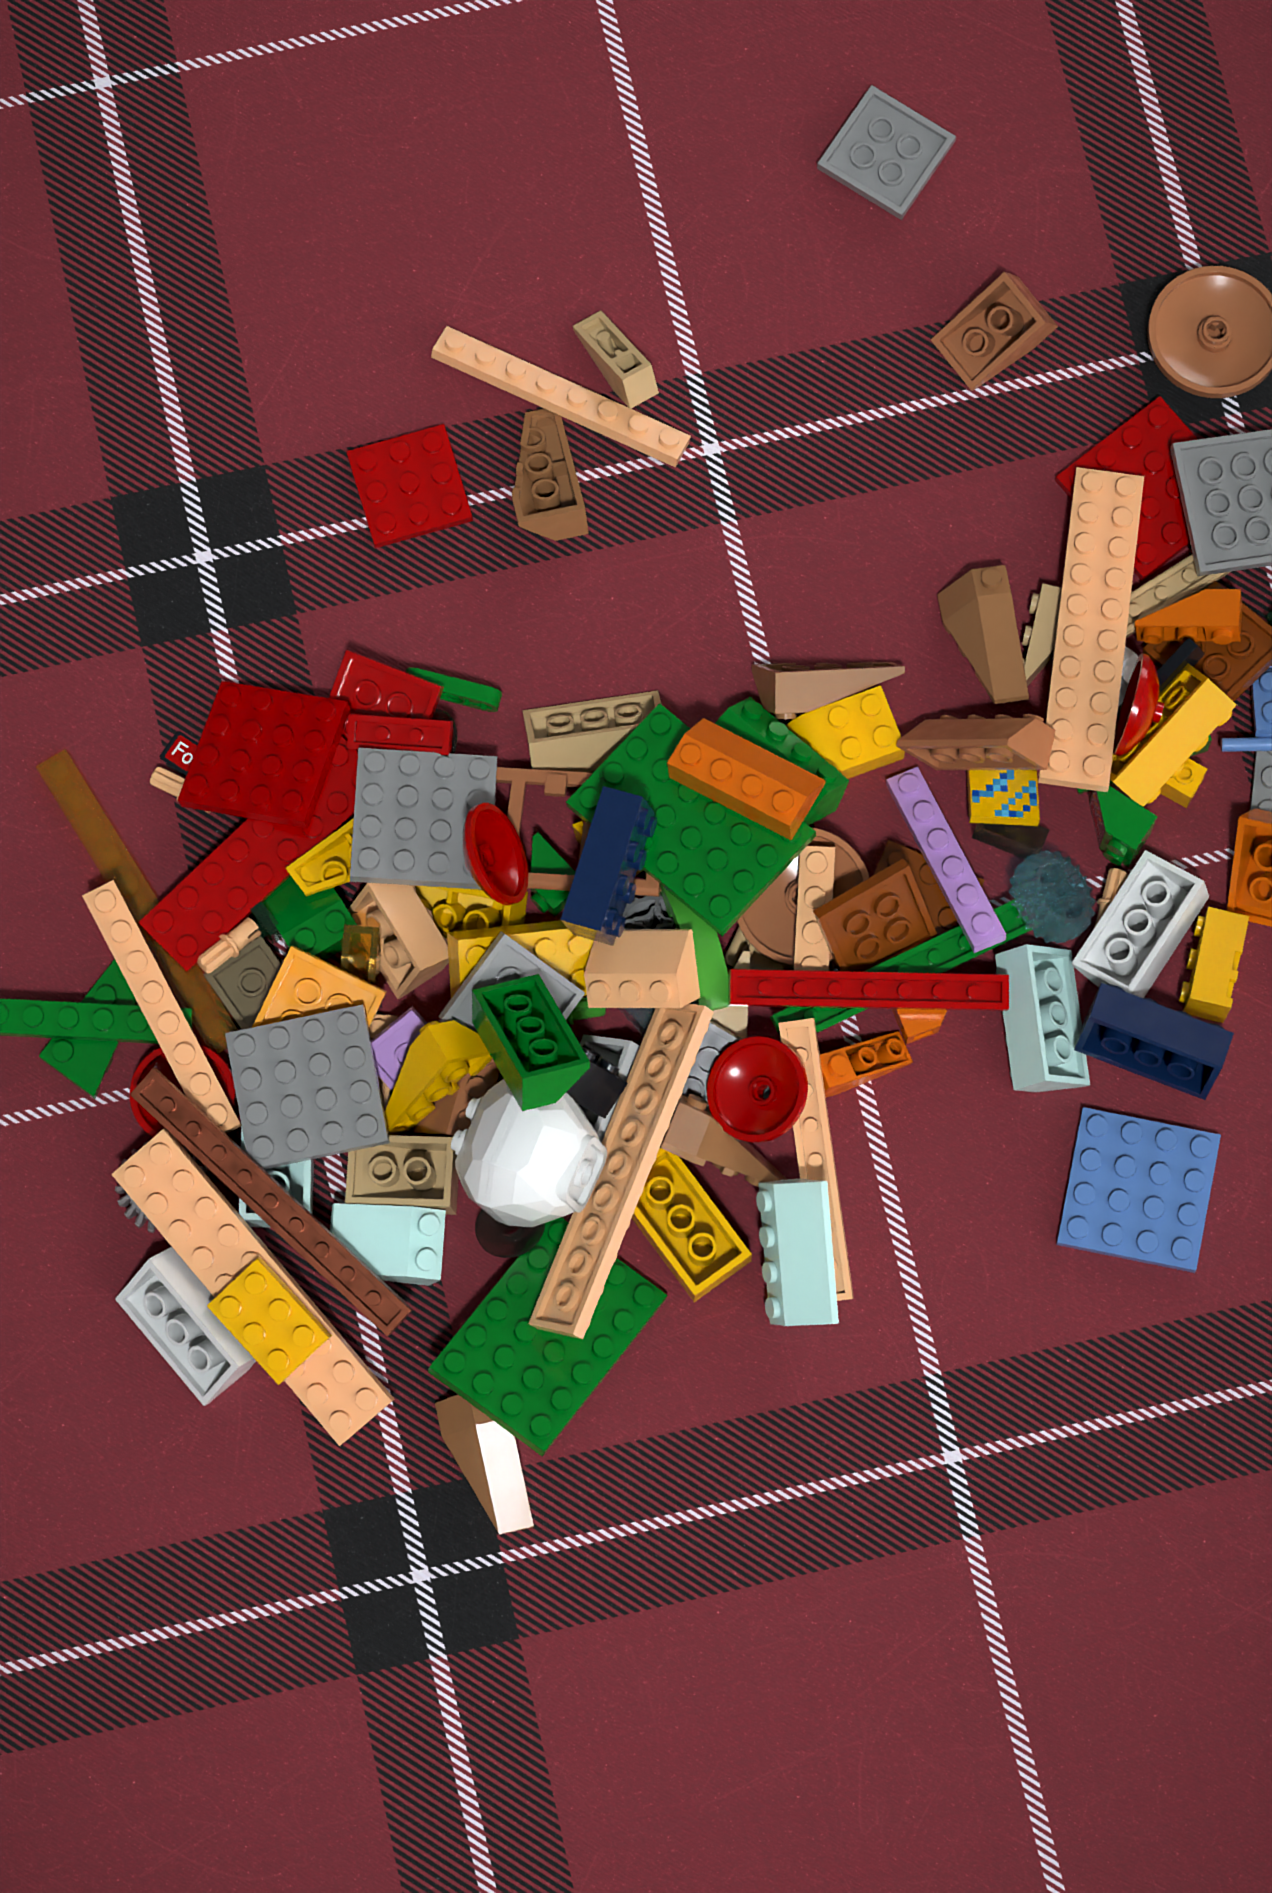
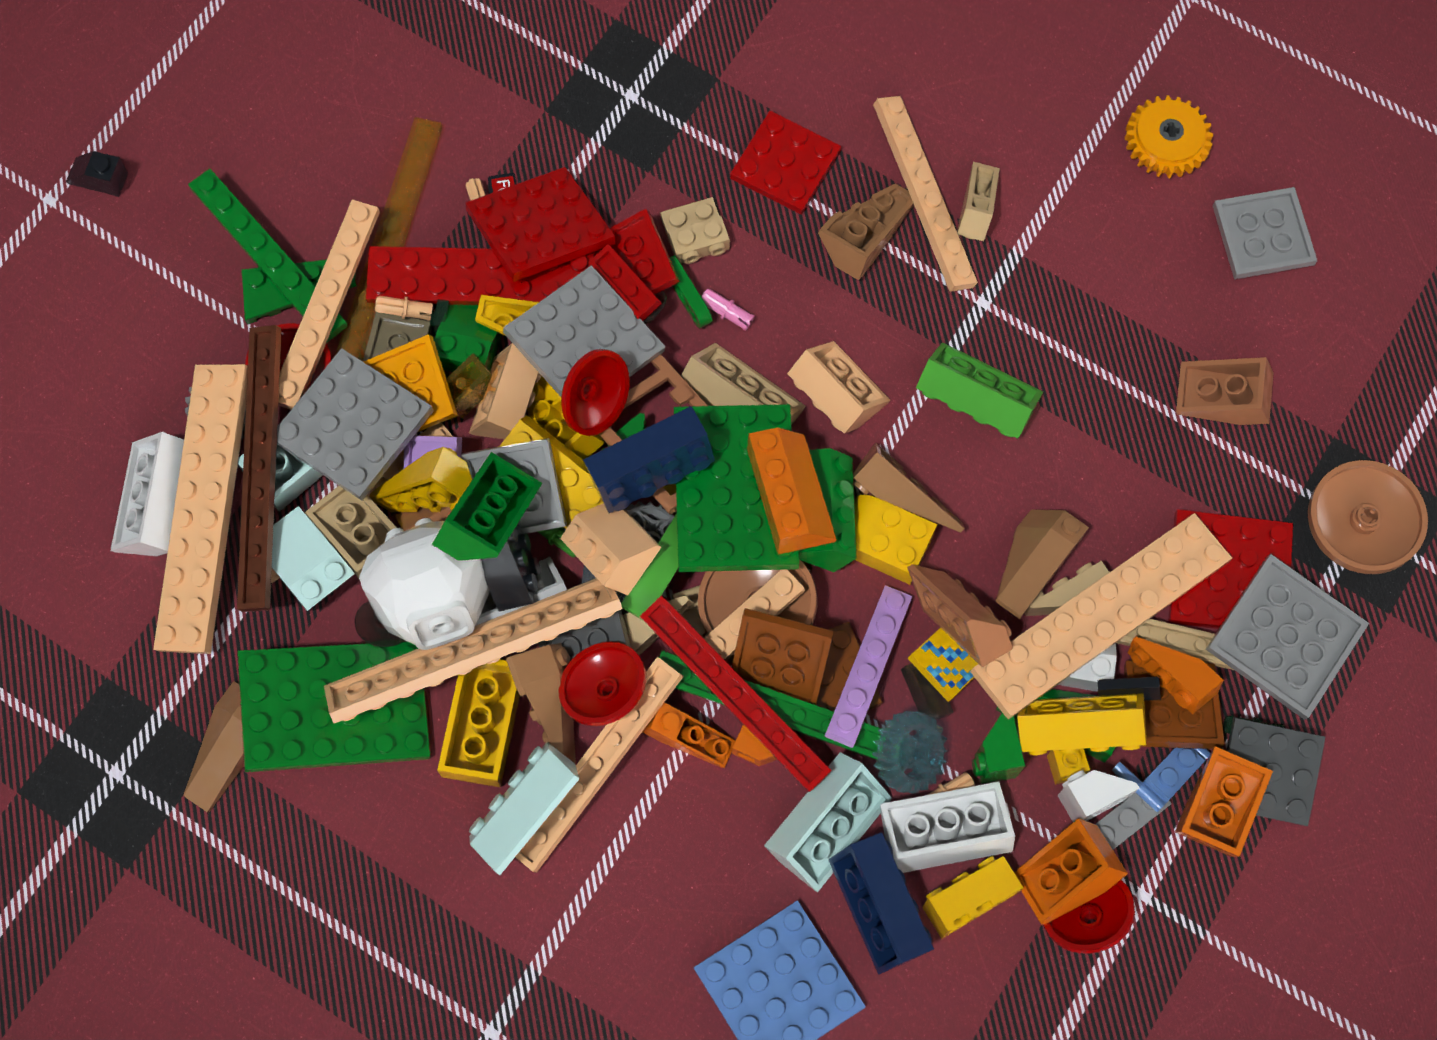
camera: 45 degrees right, 5 degrees down
(269, 1320) = (185, 533): yellow plate -> none
(399, 626) = (695, 231): none -> tan plate
(503, 670) = (727, 309): none -> bright pink axle
(670, 646) = (837, 386): none -> light nougat slope
(718, 160) = (1168, 136): none -> light orange gear
(791, 531) = (979, 390): none -> bright green slope
(1138, 707) = (1081, 686): red dish -> none
(1227, 788) = (1094, 793): none -> white slope

